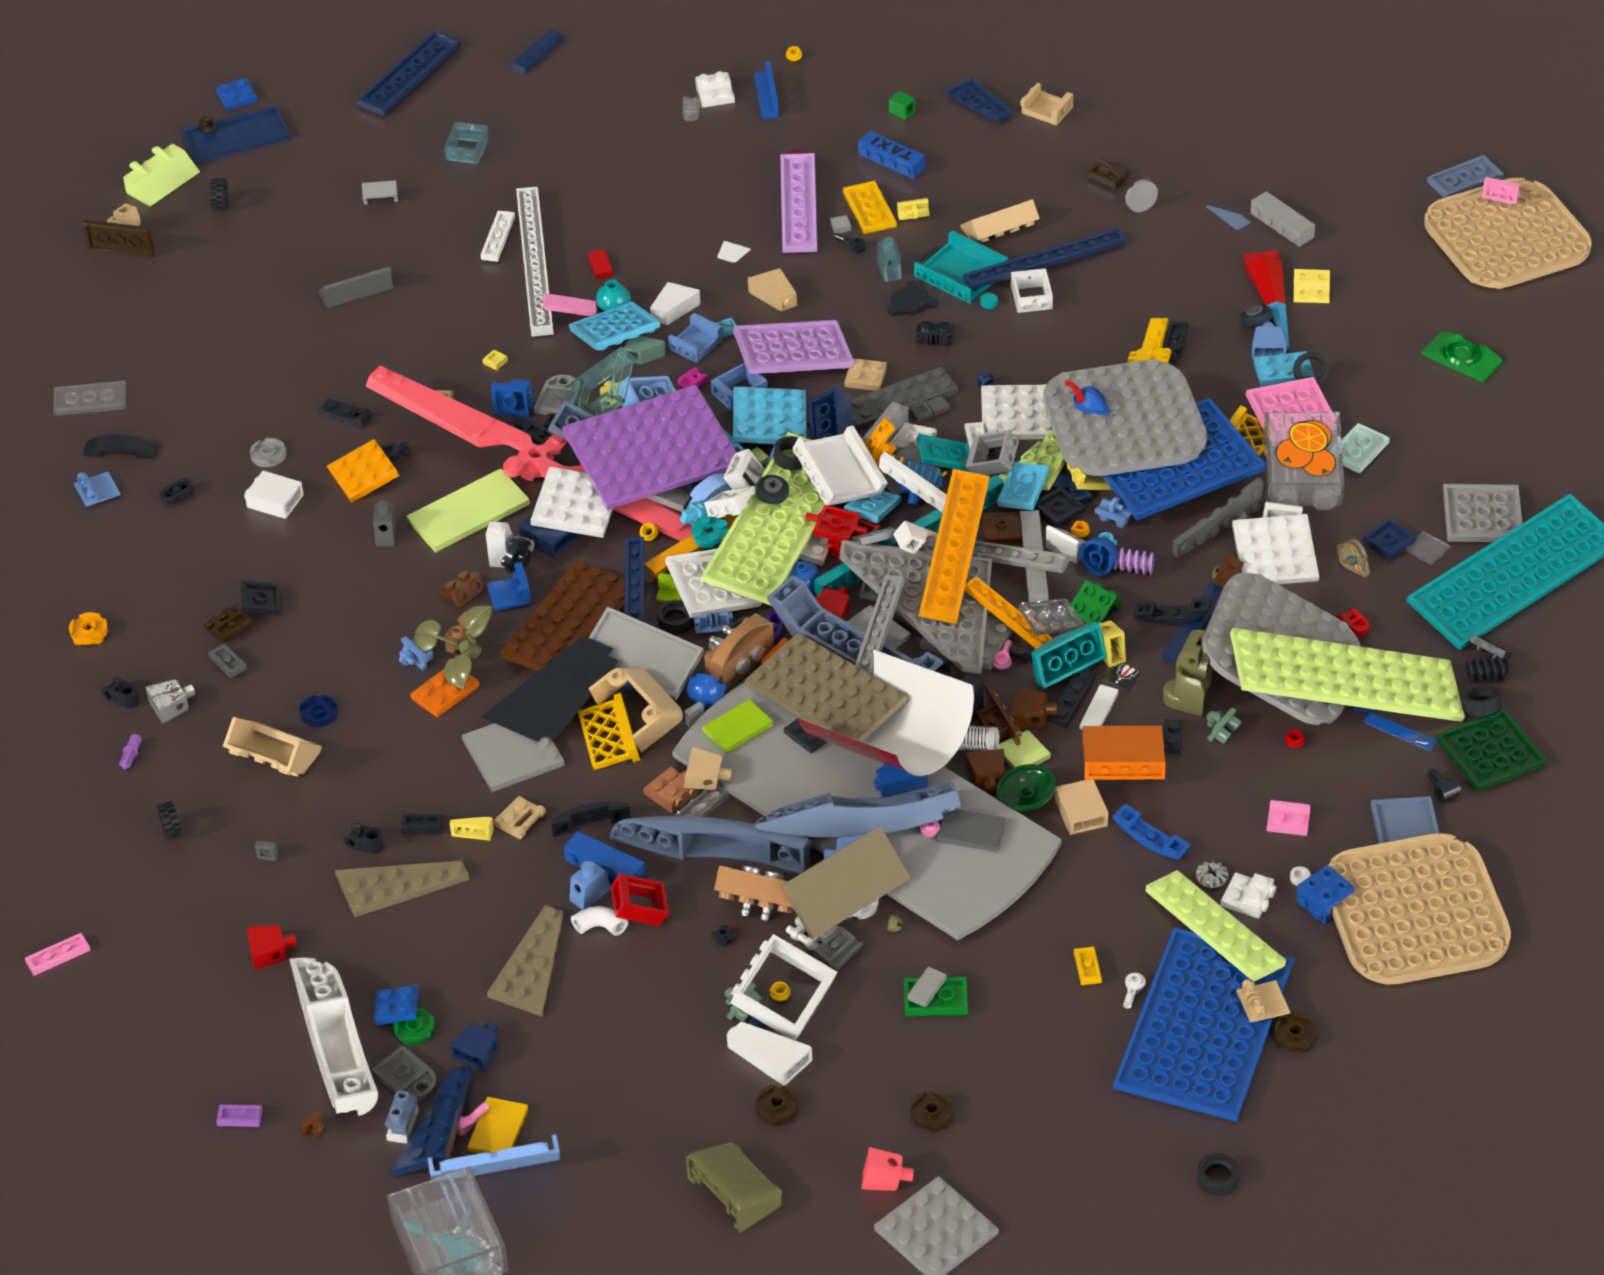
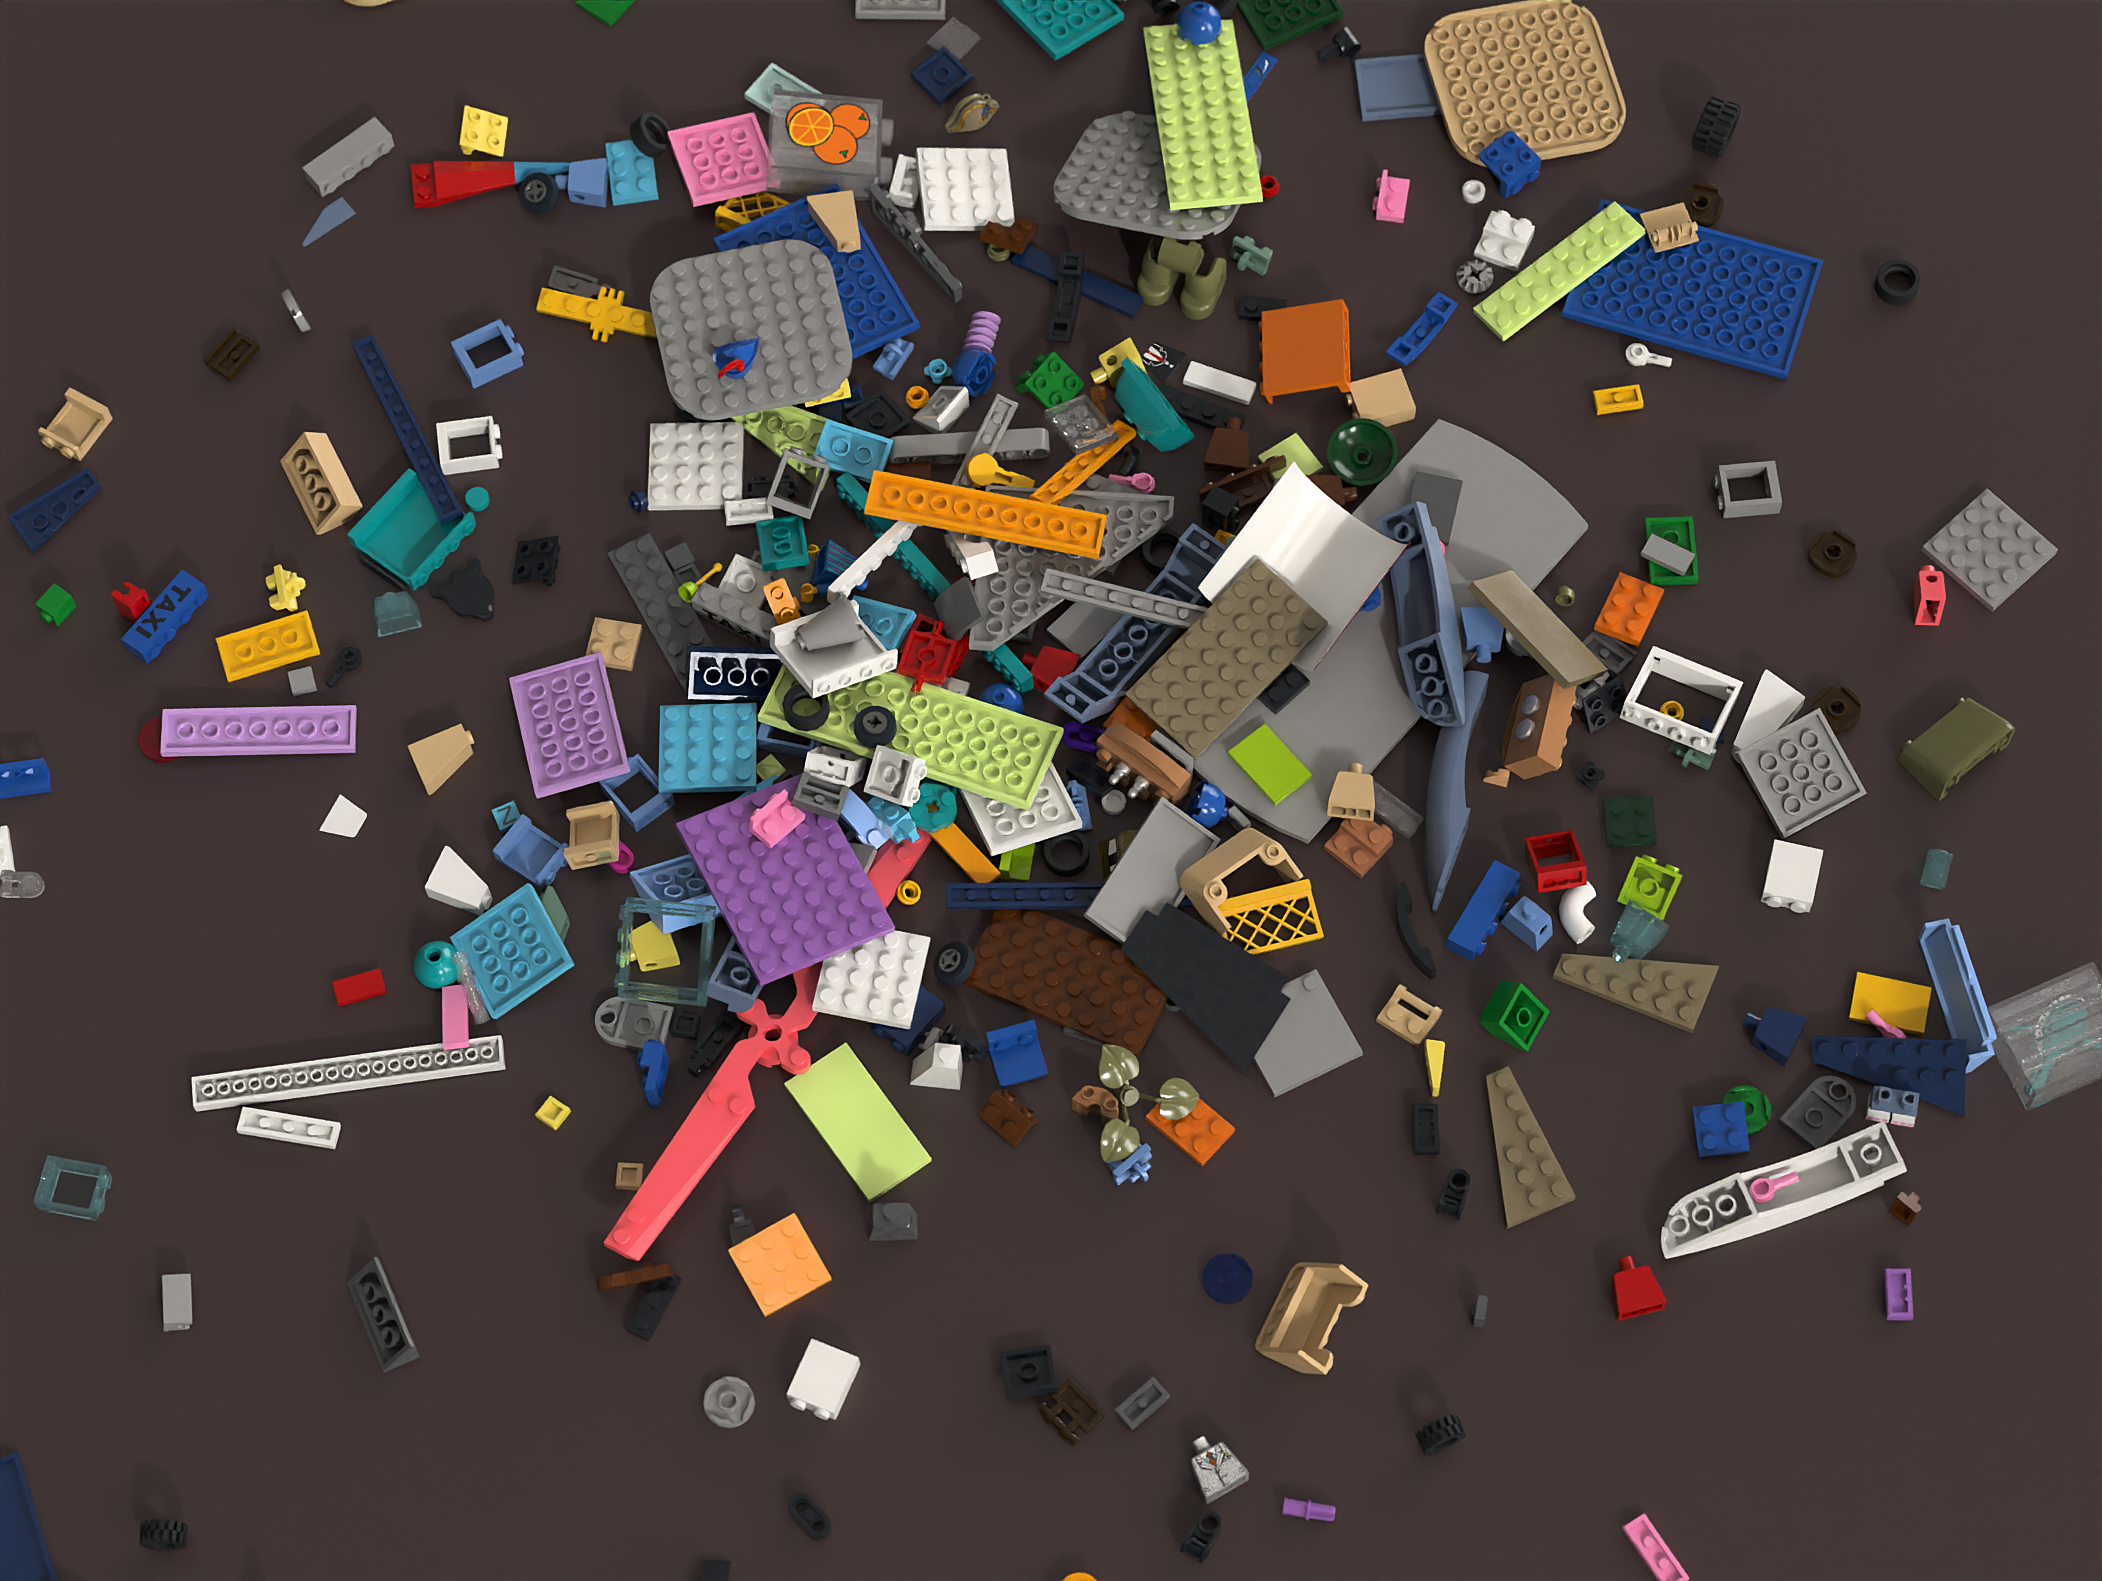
camera: 90 degrees left, 20 degrees up
(335, 1020) = (1763, 1189): none -> bright pink plate
(362, 395) = (633, 1277): none -> reddish brown piece
(510, 877) = (1514, 1015): none -> green slope
(575, 955) = (1637, 933): none -> clear light blue torso
(585, 553) = (954, 963): none -> black wheel
(609, 300) = (466, 977): none -> clear pin
(616, 967) = (1650, 886): none -> lime plate
(618, 1062) = (1792, 876): none -> white brick
(619, 1167) = (1936, 869): none -> clear light blue bracket
(680, 961) = (1629, 821): none -> clear green plate
(694, 433) = (775, 819): none -> bright pink bracket
(702, 364) = (593, 835): none -> tan panel
(708, 457) = (820, 796): none -> dark grey plate
(710, 1067) = (1800, 773): none -> light grey plate
(747, 664) = (1172, 751): none -> light grey plate
(784, 929) = (1603, 704): none -> black hinge
(857, 463) = (831, 627): none -> light grey cone
(878, 964) = (1629, 609): none -> orange plate
(894, 129) = (132, 604): none -> red hinge
(905, 401) = (689, 589): none -> lime hinge
(988, 1068) = (1769, 505): none -> light grey window
(1007, 554) = (984, 470): none -> yellow piece
(1108, 285) = (495, 368): none -> medium blue window
(1225, 460) = (837, 219): none -> tan slope
(1356, 622) = (1086, 112): red plate -> none
(1370, 1034) = (1716, 126): none -> black tyre
(1448, 683) = (1199, 23): none -> blue cylinder

